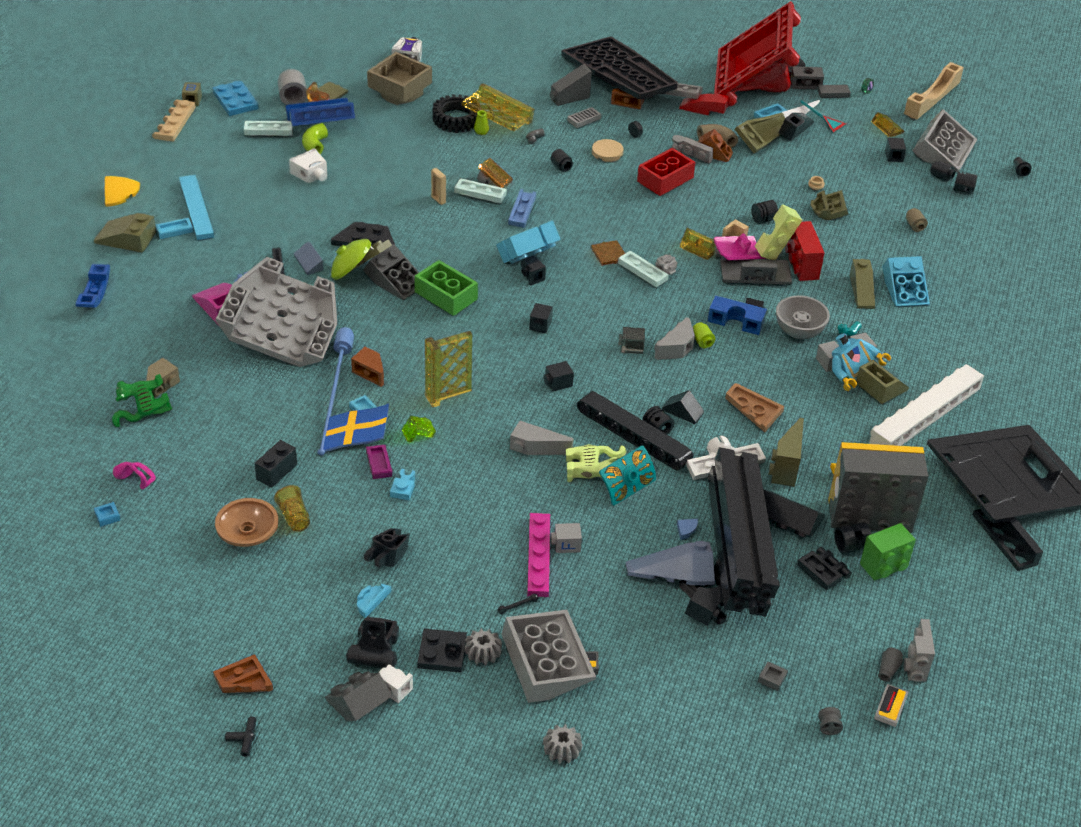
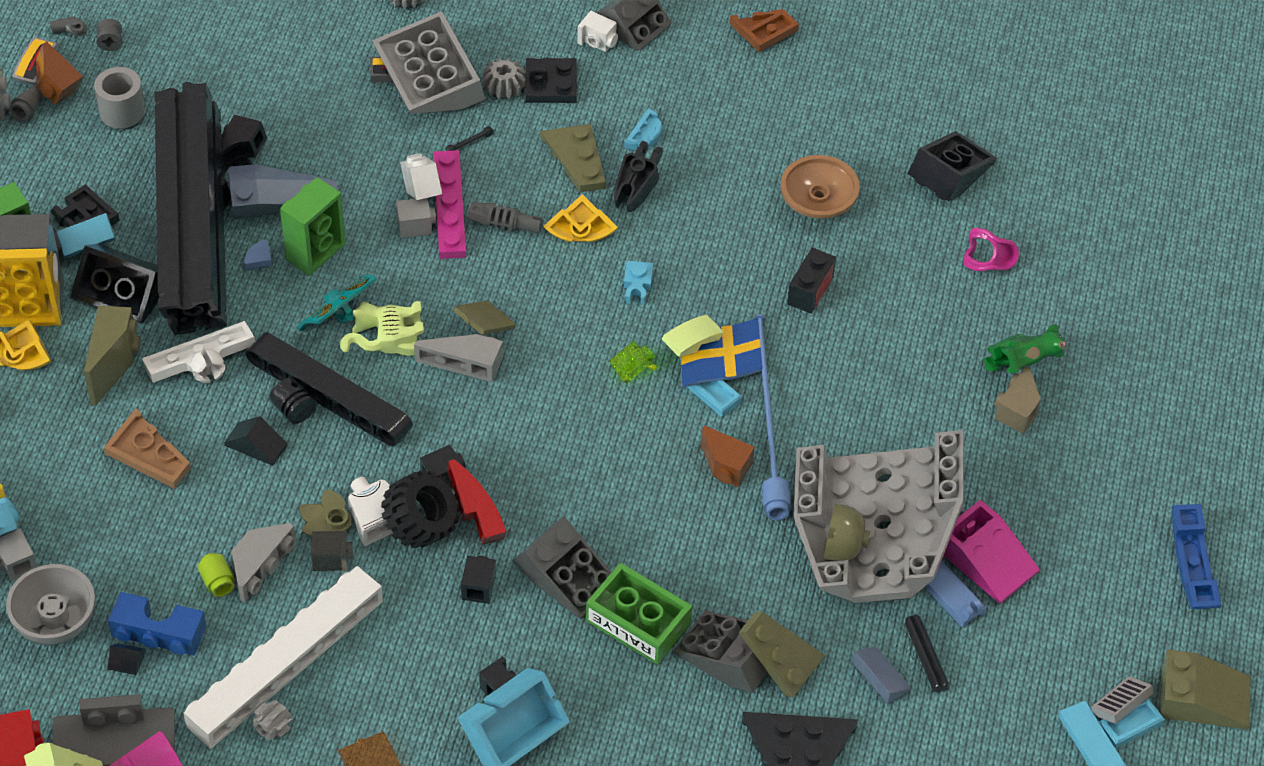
camera: 175 degrees right, 10 degrees up
(107, 514) = (1001, 205): dark azure tile -> none
(132, 539) = (950, 165): none -> black slope
(175, 231) = (1122, 700): none -> light grey tile
(291, 504) = (771, 222): clear yellow plant -> none
(310, 295) = (845, 534): none -> olive cylinder
(349, 257) = (805, 641): lime dish -> none
(374, 644) = (627, 67): black piece -> none
(379, 461) = (675, 306): magenta tile -> none
(380, 423) = (690, 335): none -> yellowish green slope
(432, 584) = (578, 154): none -> olive wing
(435, 370) = (623, 399): clear yellow fence -> none
(438, 529) = (580, 223): none -> yellow brick
(487, 320) = (564, 566): none -> dark grey slope
(498, 534) = (504, 217): none -> dark grey hinge
(520, 461) = (484, 317): none -> olive piece
(539, 346) = (476, 504): none -> red slope
(561, 551) = (420, 177): none -> white brick
(575, 340) = (403, 514): none -> black tyre
(602, 358) = (367, 509): none -> white torso
(635, 363) = (322, 516): none -> olive plate
(643, 268) = (314, 716): light aqua plate -> none
(646, 511) = (313, 225): none -> bright green brick
(658, 294) = (282, 657): none -> white brick
(772, 676) = (168, 77): dark grey plate -> none
(811, 645) = (119, 97): none -> light grey piece
(820, 542) = (89, 232): none -> medium azure tile
(868, 674) = (55, 74): none -> dark orange slope
(868, 742) = (70, 24): none -> dark grey arm

